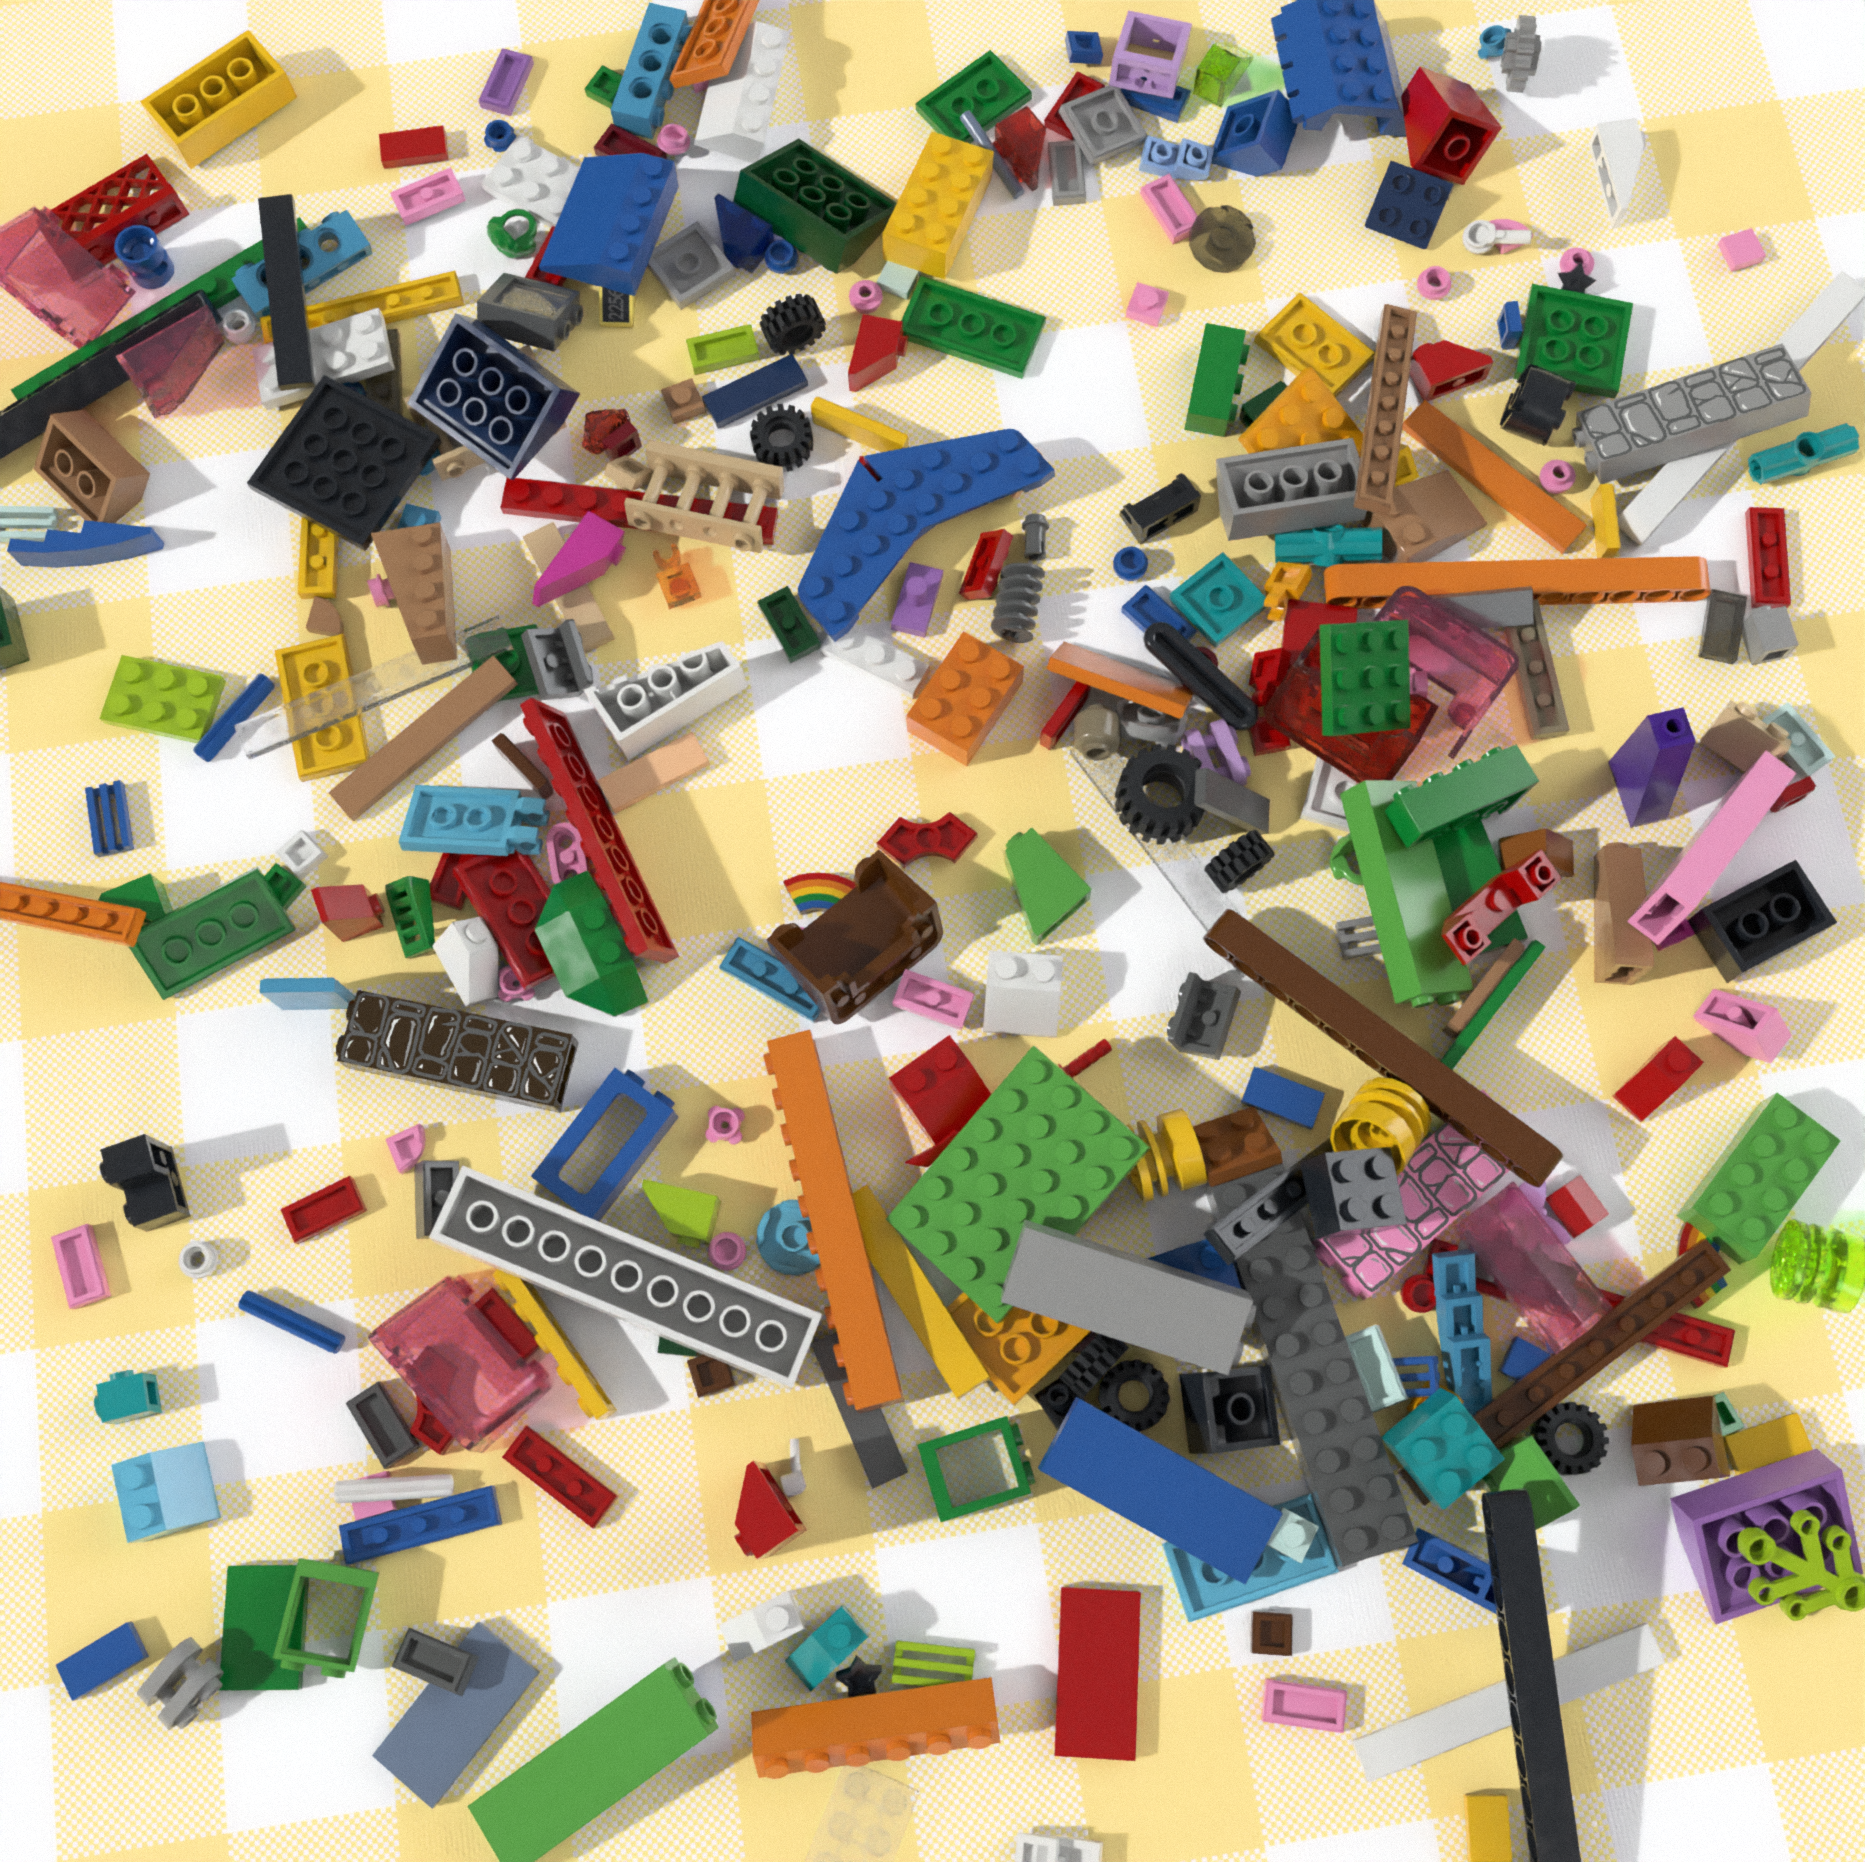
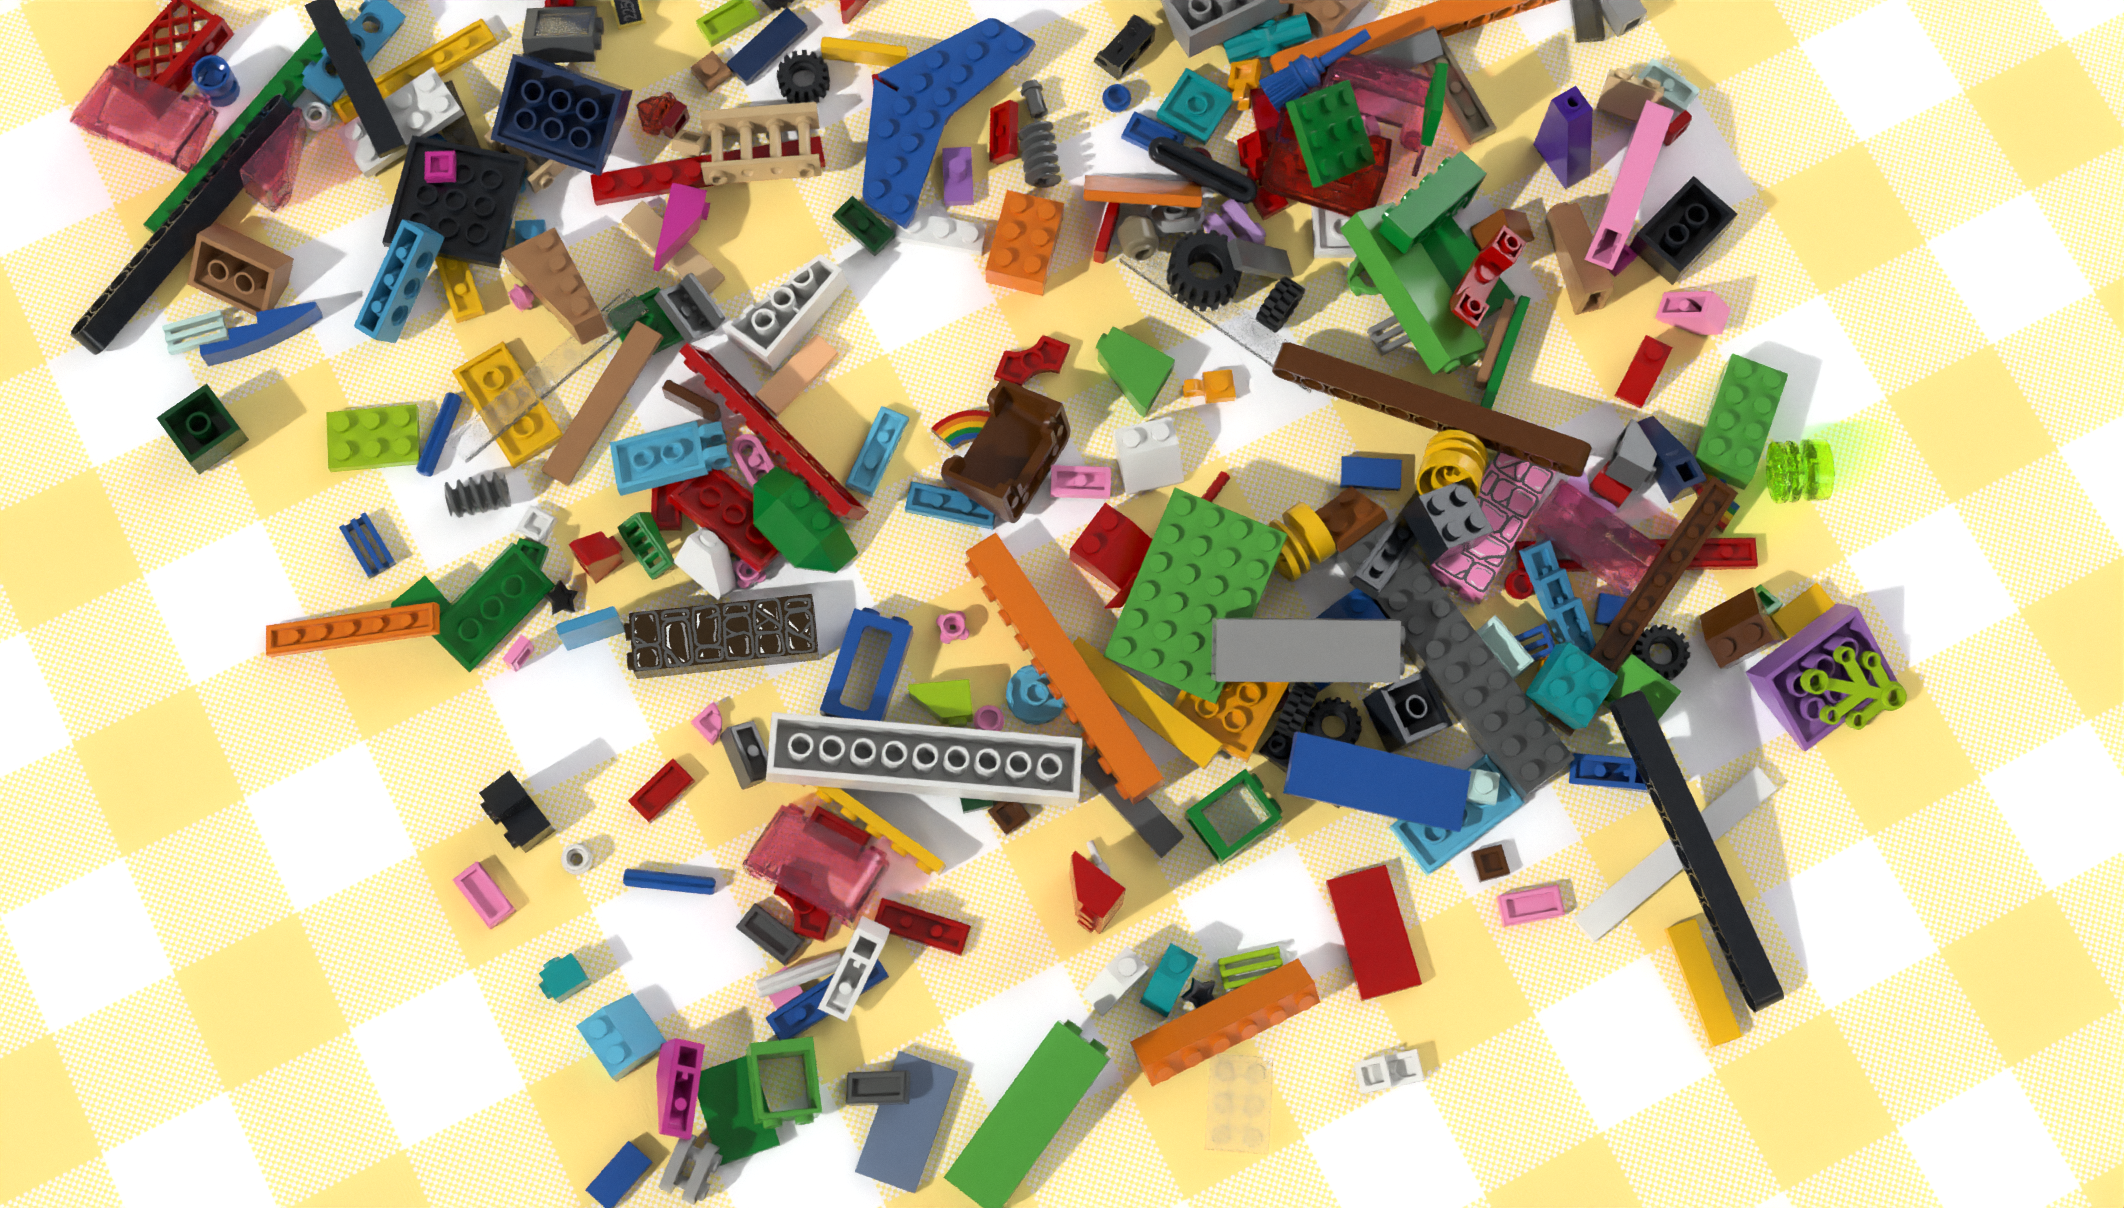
camera: 25 degrees left, 0 degrees up
(198, 1584) = (678, 1086): none -> dark pink slope
(223, 996) = (518, 653): none -> bright pink tile
(245, 531) = (399, 281): none -> dark azure brick
(246, 801) = (477, 495): none -> dark grey piece
(295, 948) = (561, 598): none -> black piece
(324, 619) = (482, 333): medium nougat tile -> none
(339, 418) = (440, 166): none -> dark pink tile
(458, 1504) = (854, 968): none -> white slope
(676, 580) = (759, 218): clear orange plate -> none
(712, 889) = (877, 451): none -> medium azure tile
(1131, 936) = (1214, 386): none -> light orange plate
(1202, 1017) = (1291, 431): dark grey bracket -> none
(1358, 597) = (1305, 72): none -> blue piece
(1500, 678) = (1434, 104): none -> green tile
(1610, 1182) = (1632, 457): none -> dark grey slope
(1654, 1197) = (1676, 466): none -> dark blue slope

